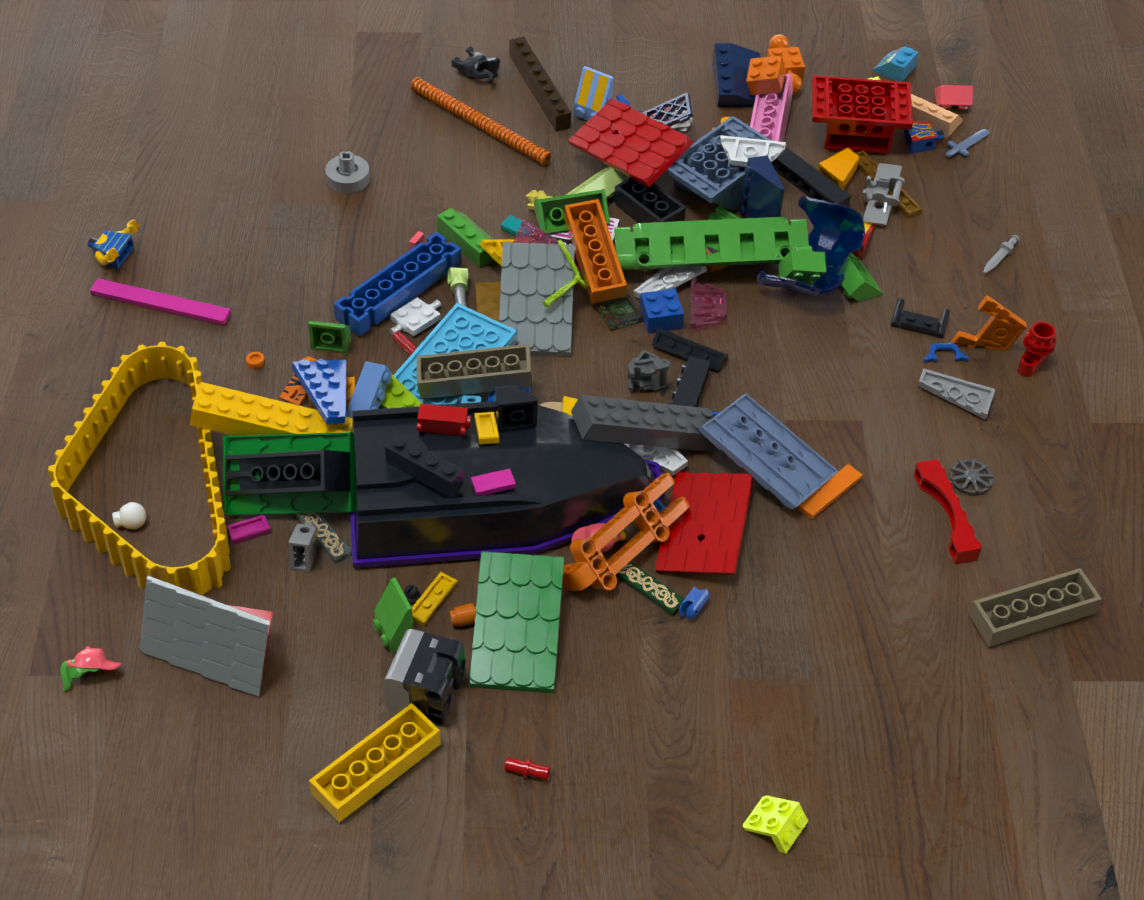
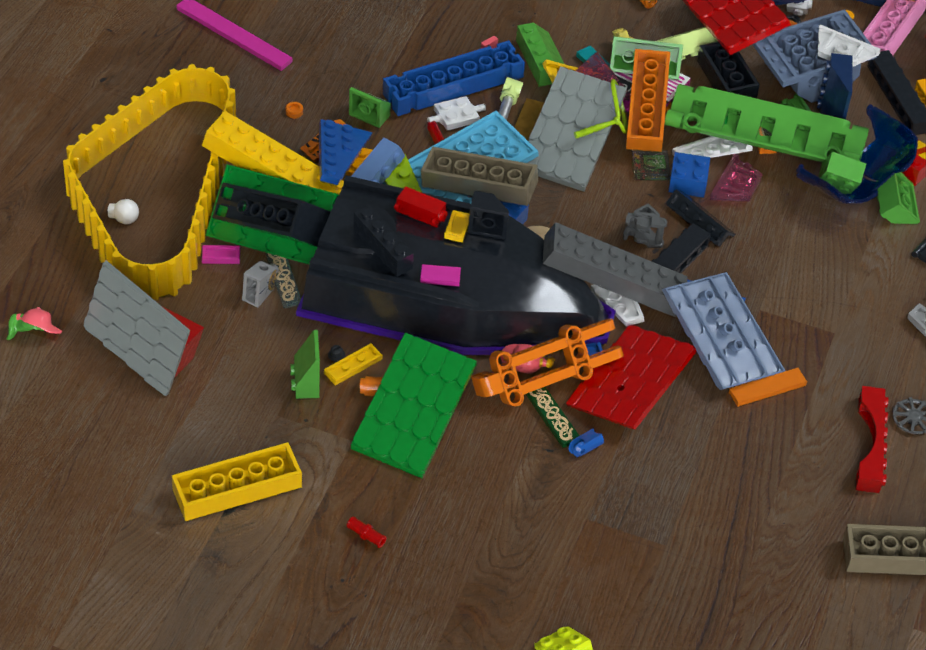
camera: 20 degrees right, 0 degrees up
(425, 674) = (311, 422): black piece -> none

